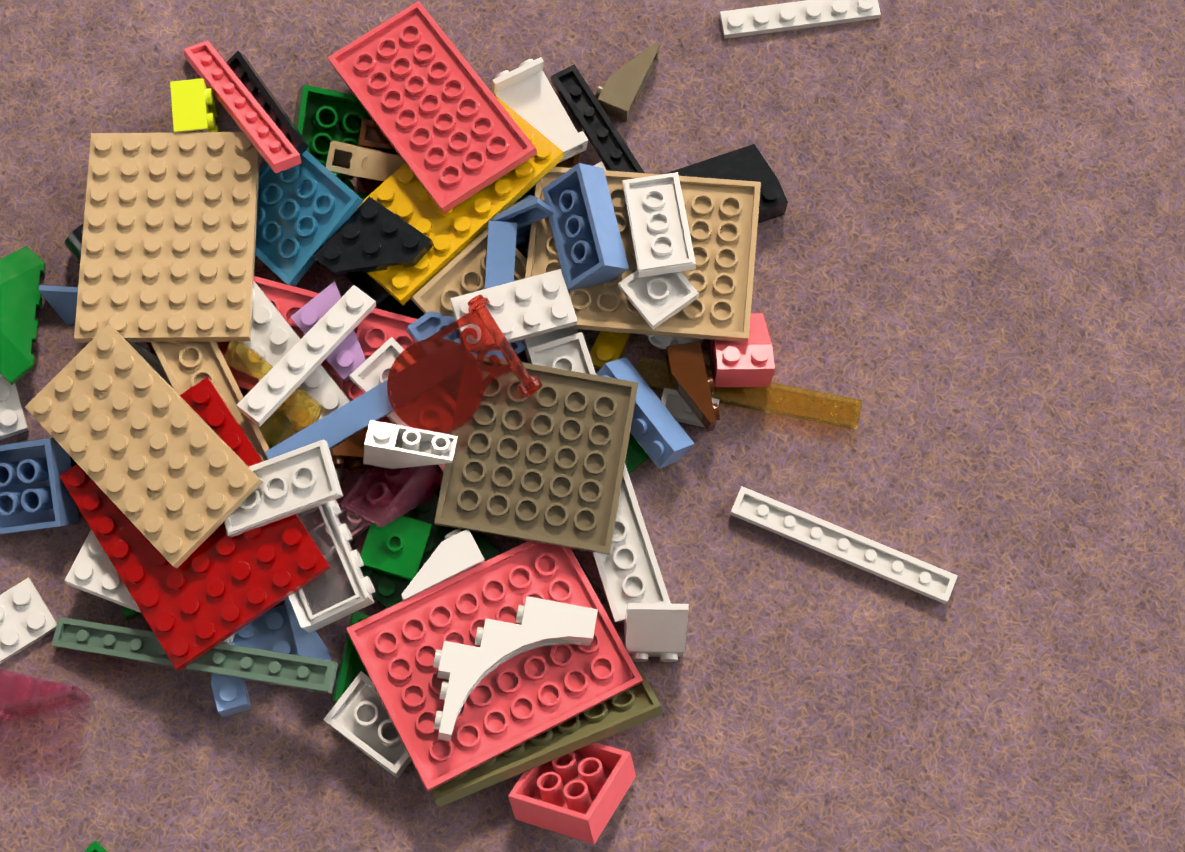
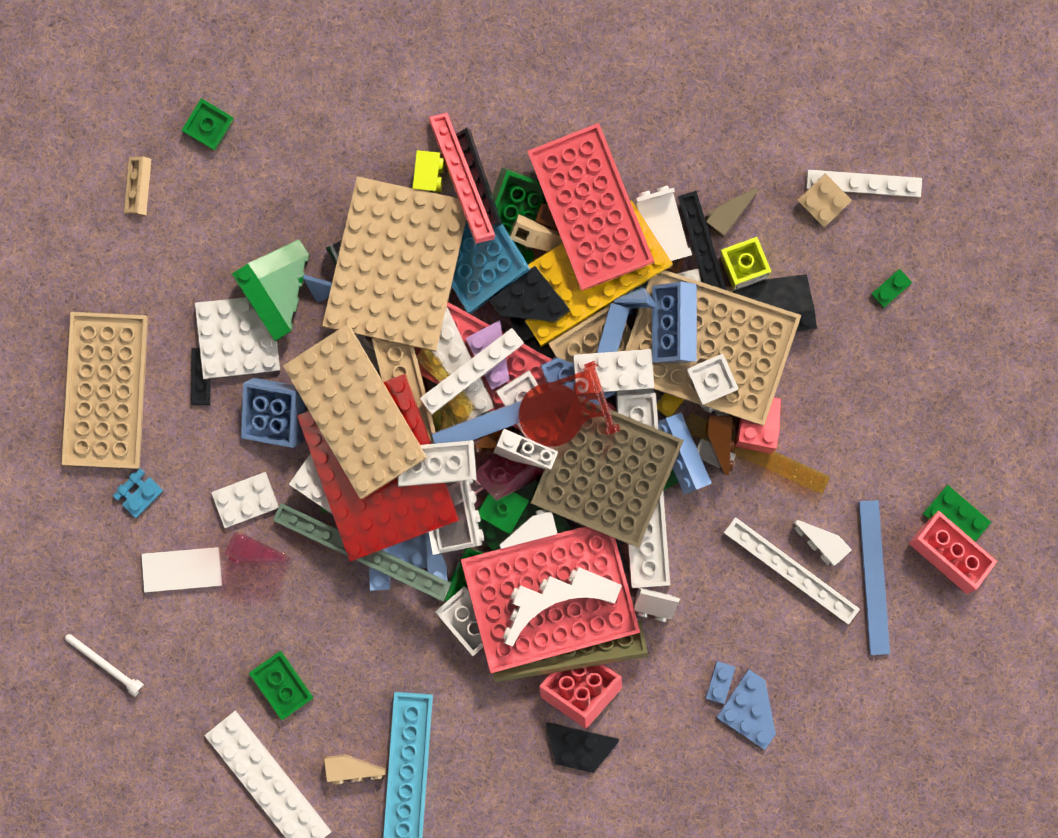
camera: 15 degrees right, 15 degrees up
(658, 225) = (724, 333): white tile -> none
(665, 140) = (745, 263): none -> neon yellow brick
(752, 42) = (824, 200): none -> tan plate
(782, 733) = (720, 682): none -> medium blue plate
(837, 765) = (750, 710): none -> medium blue plate
(875, 137) = (891, 288): none -> green plate
(891, 492) = (830, 545): none -> white slope
(965, 530) = (874, 577): none -> medium blue tile
(1057, 419) = (959, 512): none -> green plate
(1067, 465) = (953, 552): none -> coral slope

